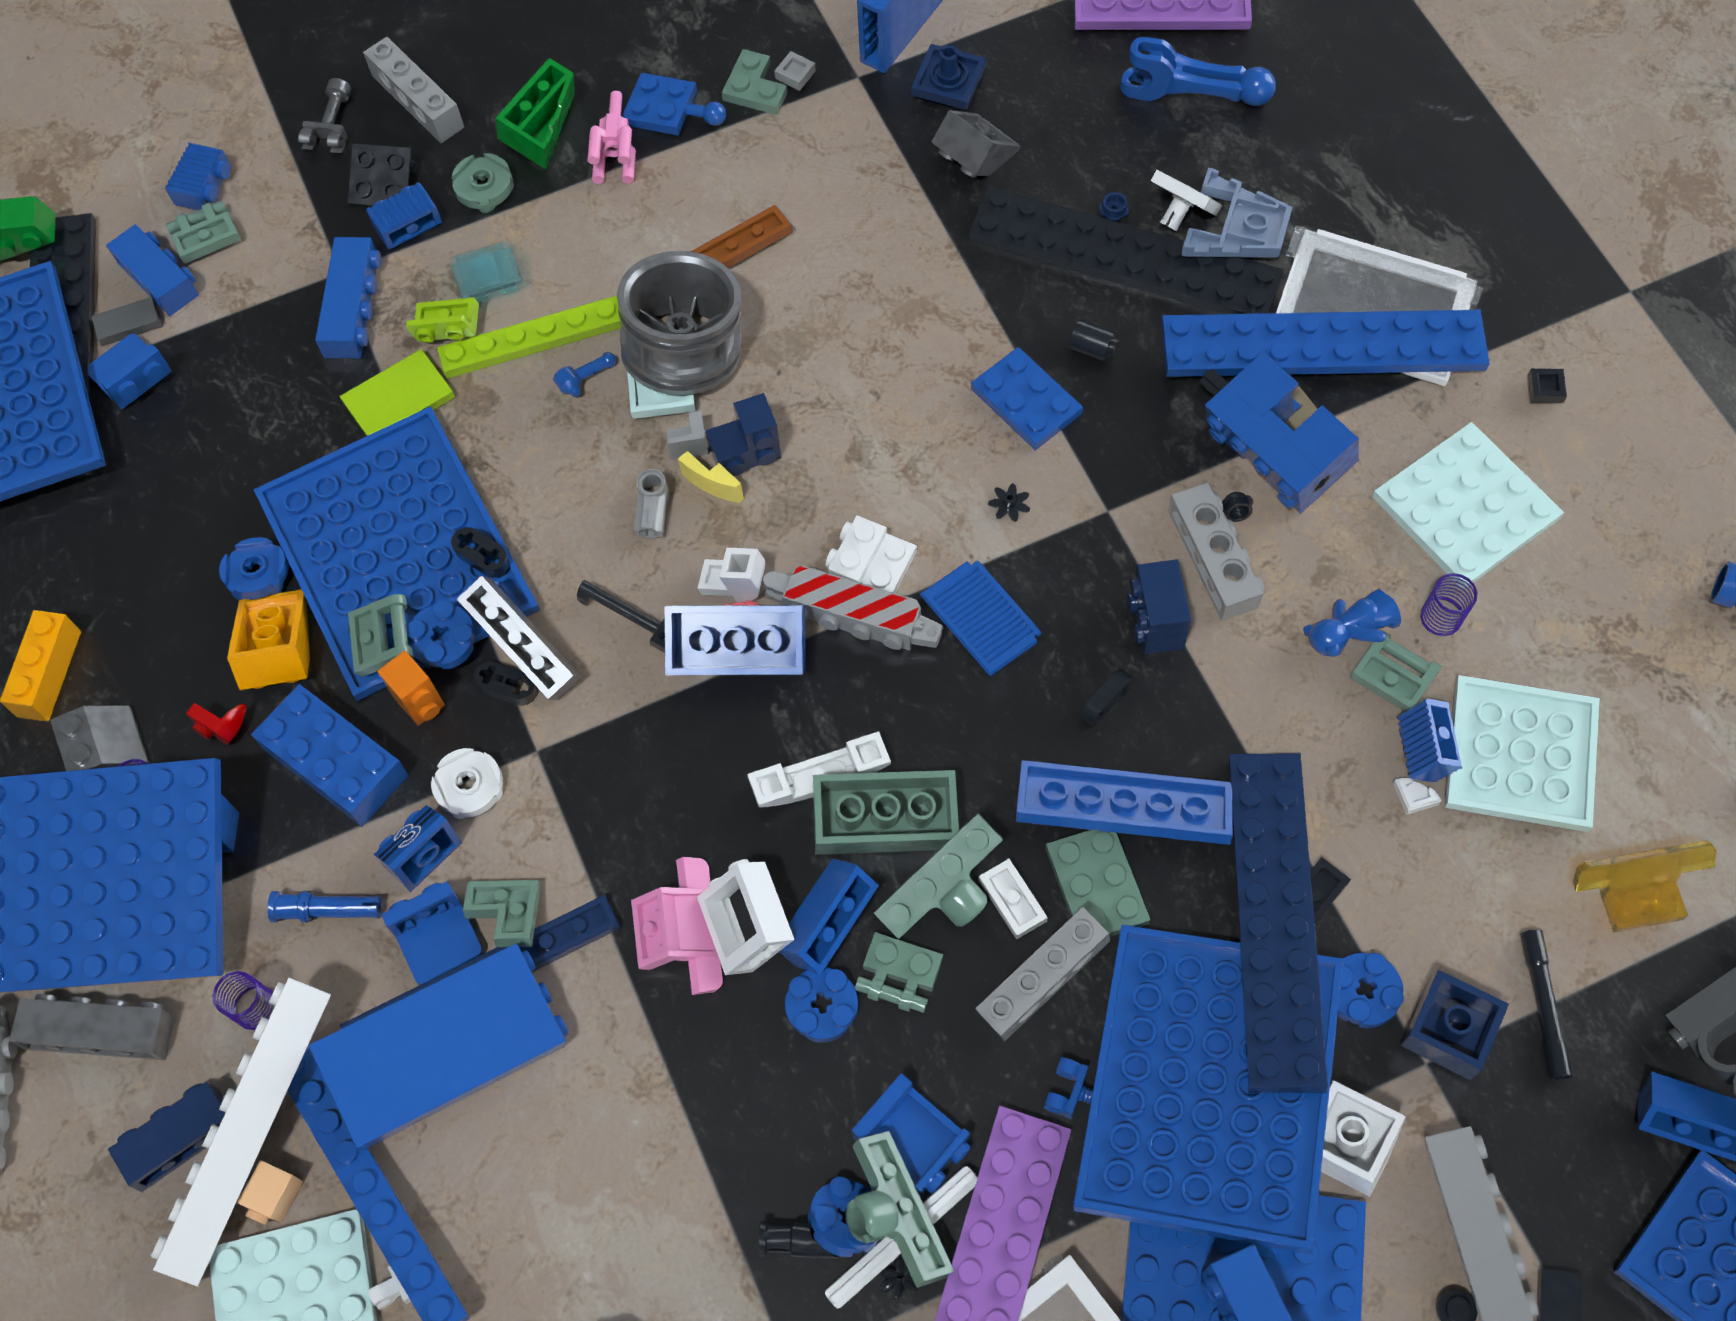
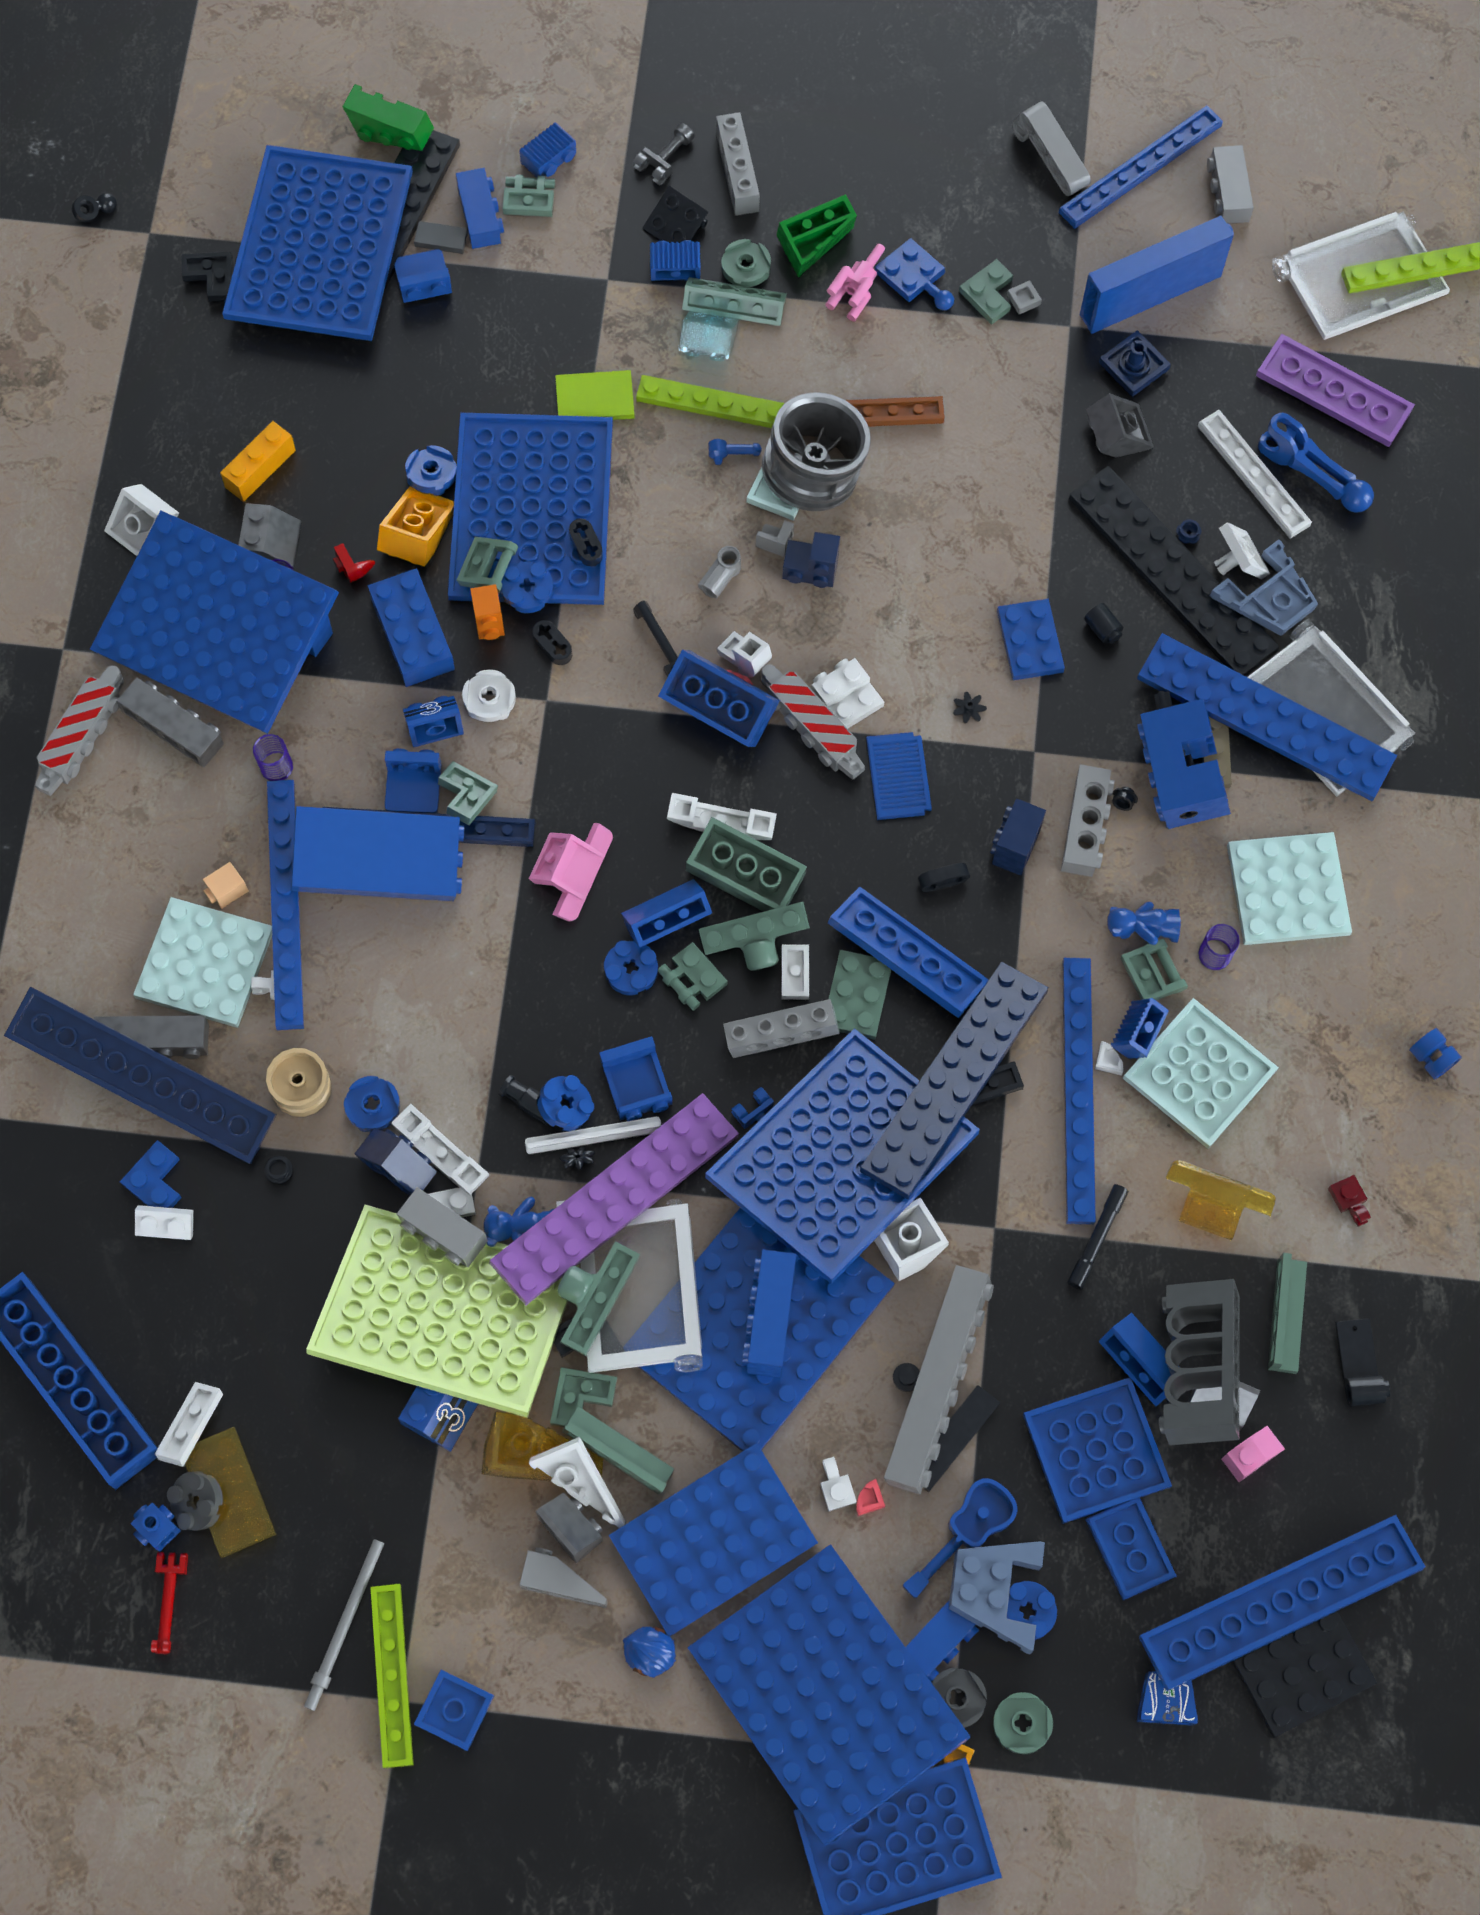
camera: 25 degrees right, 5 degrees up
(168, 1138) = (185, 817): dark blue brick -> none
(241, 1133) = (229, 836): white brick -> none
(307, 906) = (342, 720): blue pin -> none
(348, 297) = (601, 303): blue brick -> none
(444, 320) = (658, 357): lime bracket -> none
(493, 225) = (734, 301): none -> sand green fence
(519, 638) = (576, 617): brick -> none
(715, 482) = (773, 578): light yellow slope -> none
(764, 909) = (626, 888): white window -> none
(895, 1211) = (596, 1114): sand green plate -> none
(1139, 120) = (1254, 474): none -> white tile
(1386, 996) = (996, 1172): blue plate -> none
(1410, 852) = (1078, 1091): none -> blue plate
(1454, 1025) = (1025, 1211): dark blue brick -> none
(1547, 385) = (1408, 836): black plate -> none

